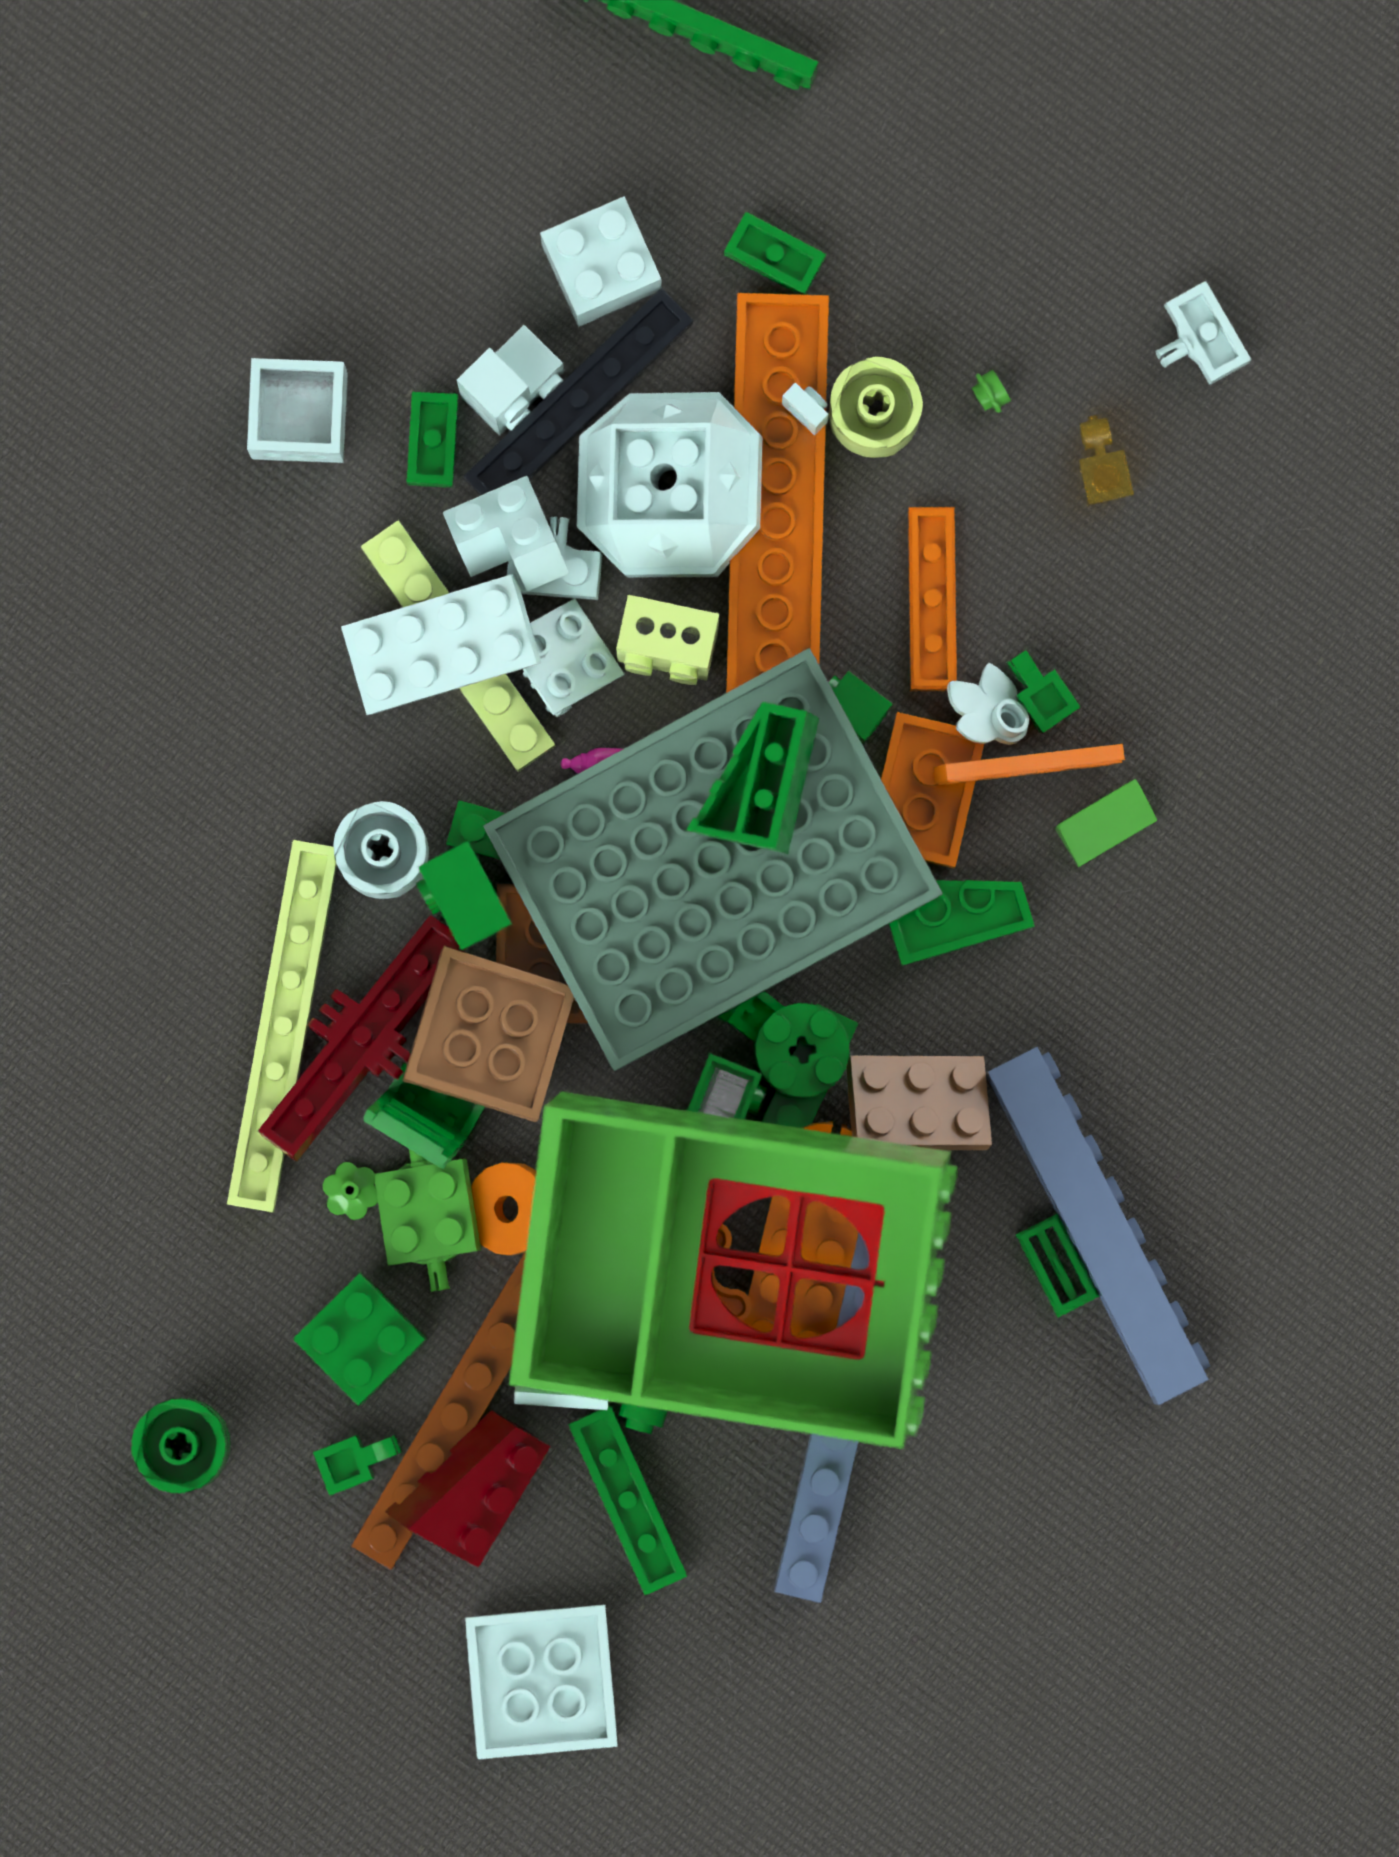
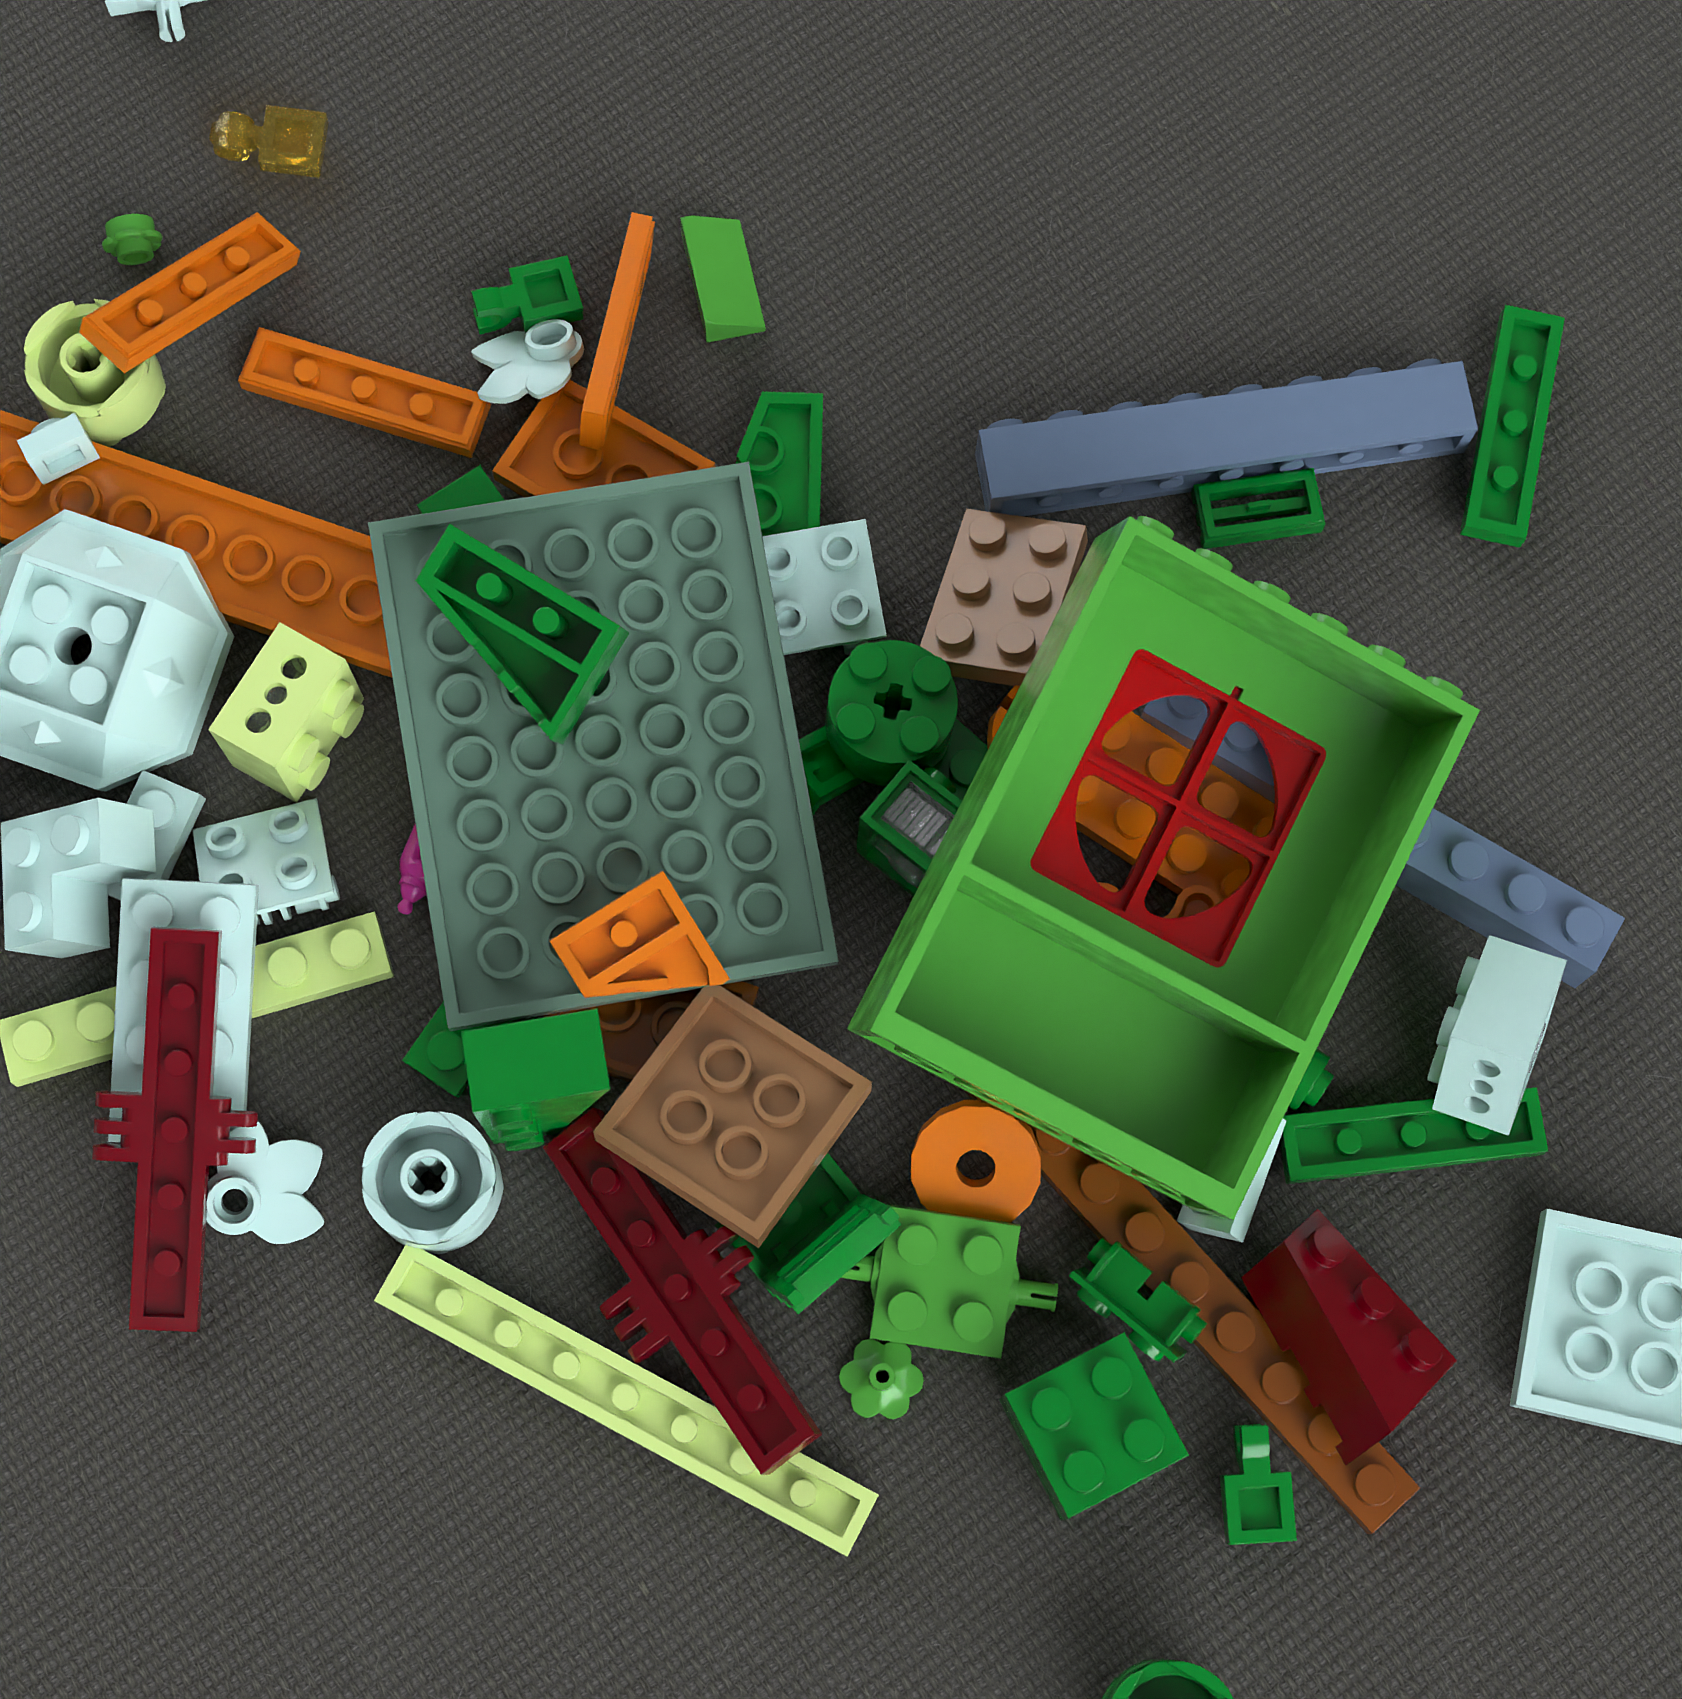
camera: 75 degrees left, 10 degrees down
(350, 743) = (274, 1189): none -> light aqua plate
(360, 669) = (174, 1129): none -> dark red hinge
(455, 1325) = (1155, 1320): none -> green hinge
(576, 933) = (638, 945): none -> orange wing
(706, 1533) = (1494, 1033): none -> light aqua piece
(885, 972) = (824, 587): none -> light aqua hinge
(954, 454) = (189, 292): none -> orange tile
(1181, 1432) = (1512, 426): none -> green plate

